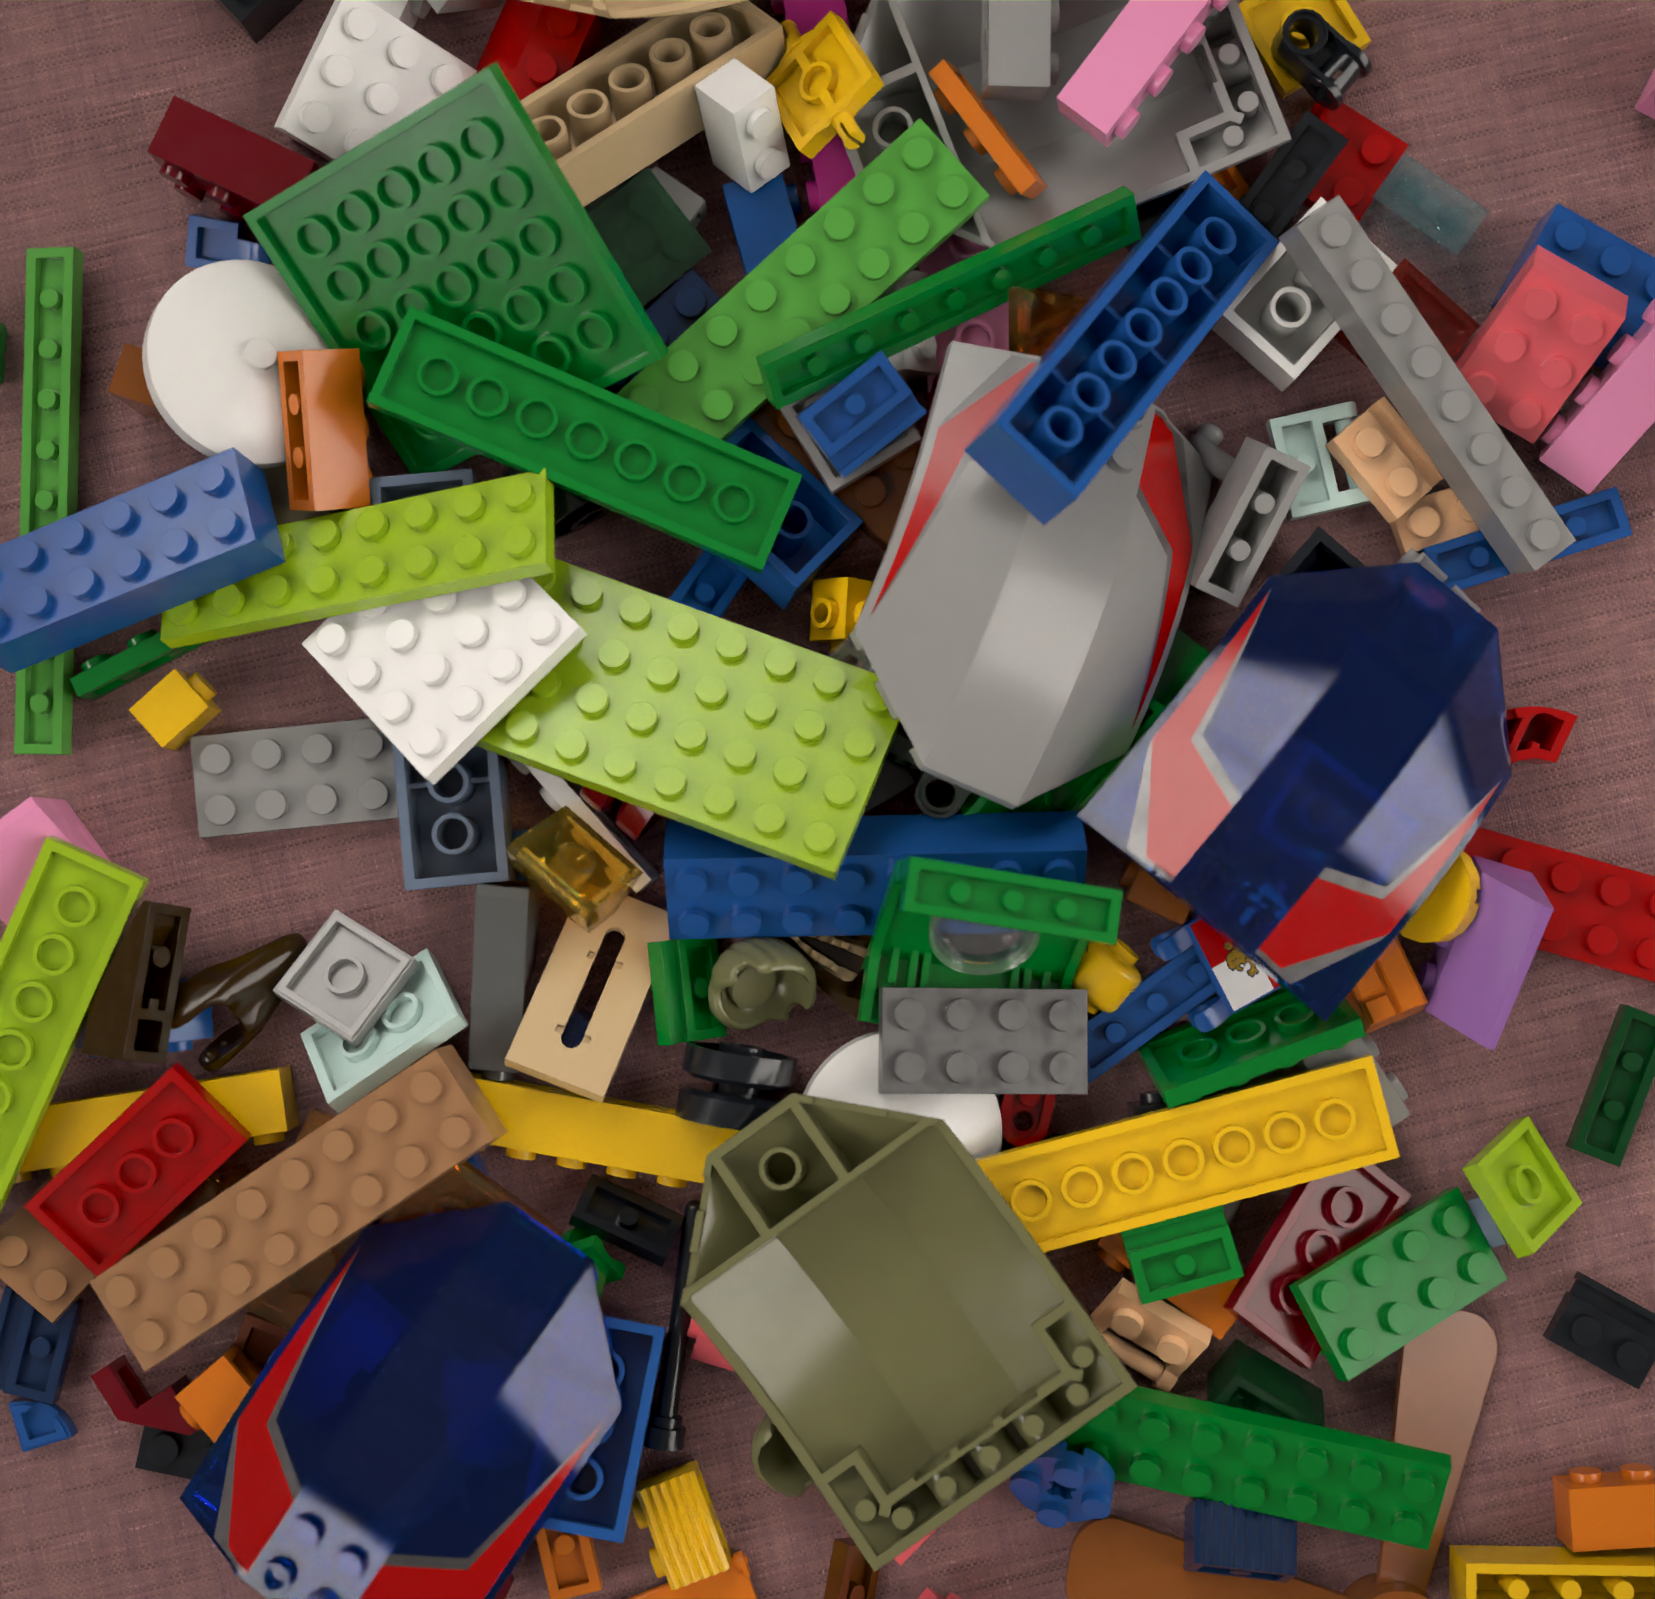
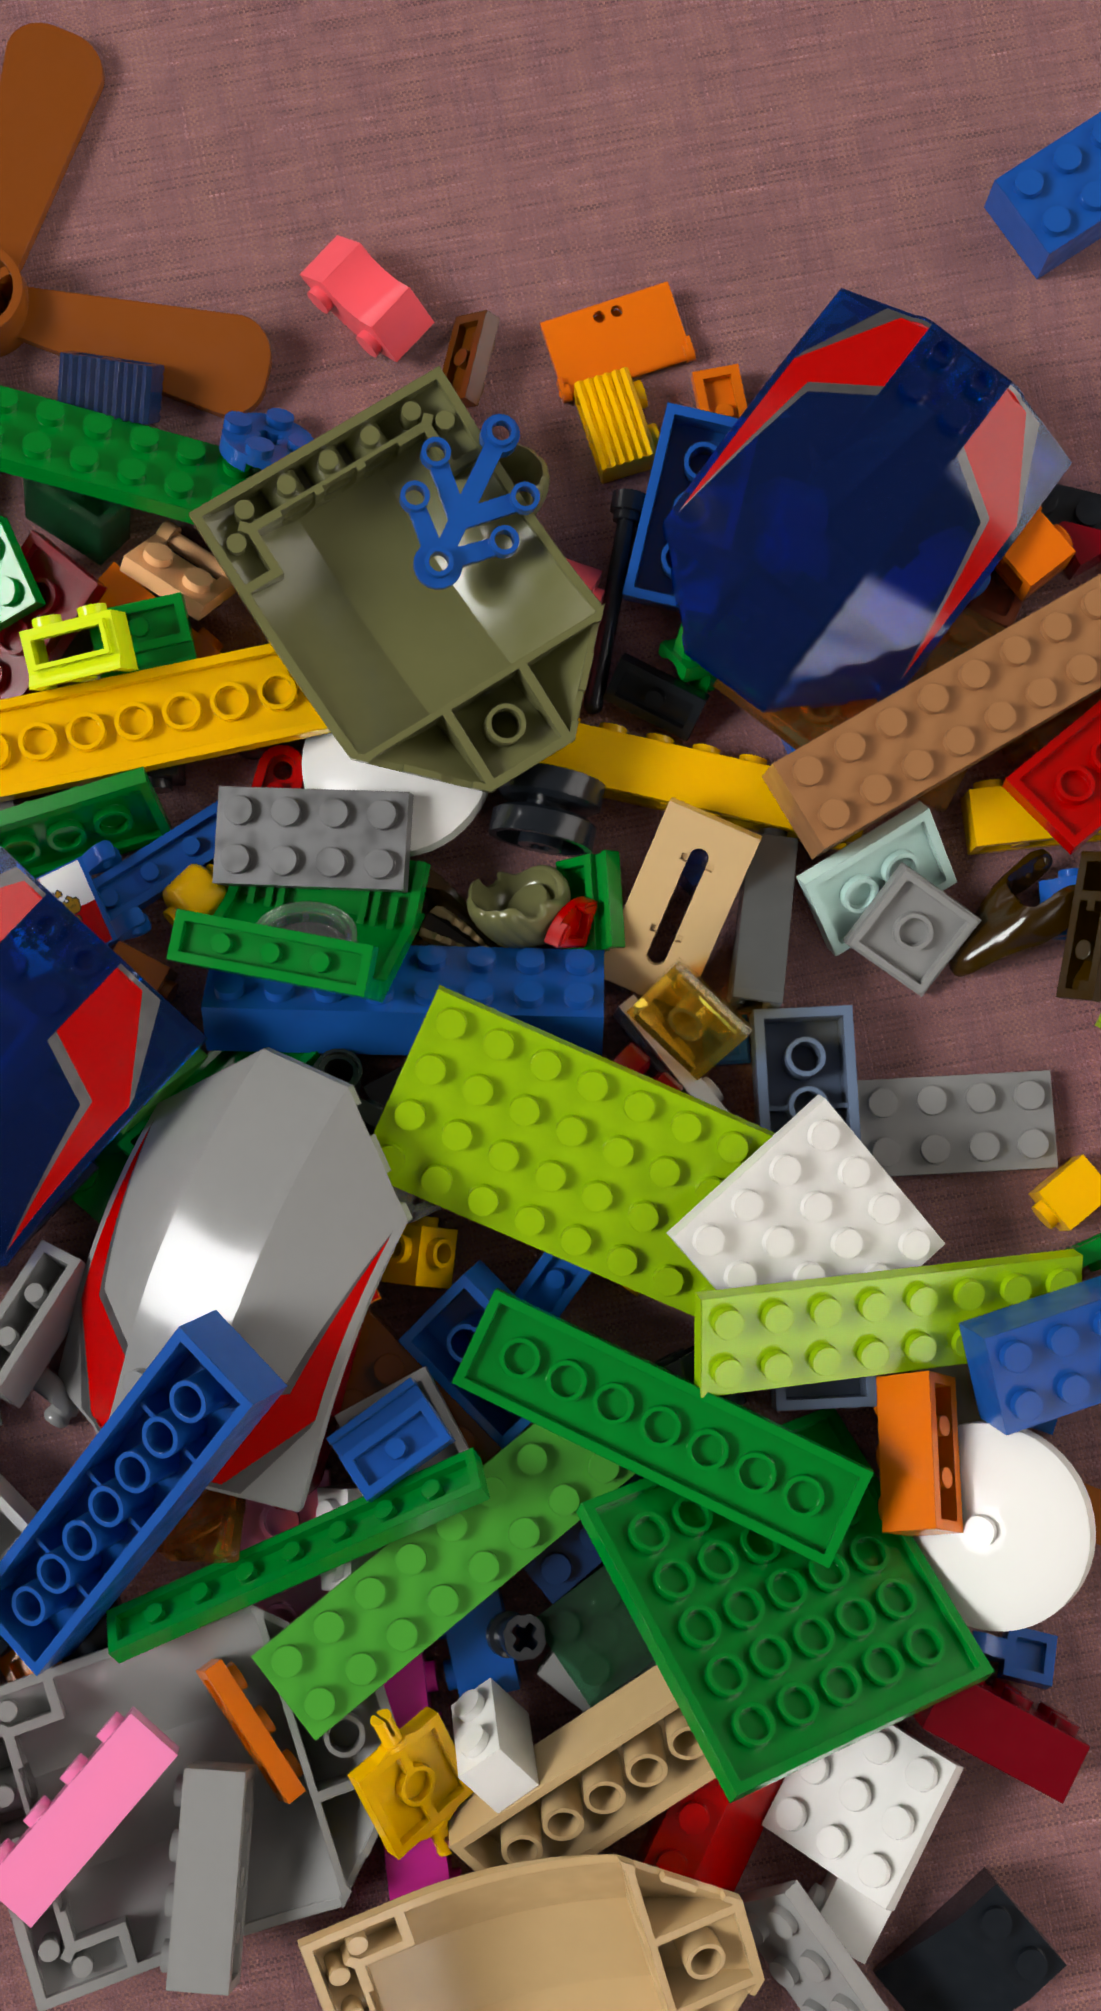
camera: 175 degrees left, 5 degrees down
(703, 964) = (572, 924): none -> red tile
(711, 235) = (529, 1630): none -> black bush
(839, 1408) = (464, 509): none -> blue plant
(1207, 1248) = (116, 655): none -> neon yellow window

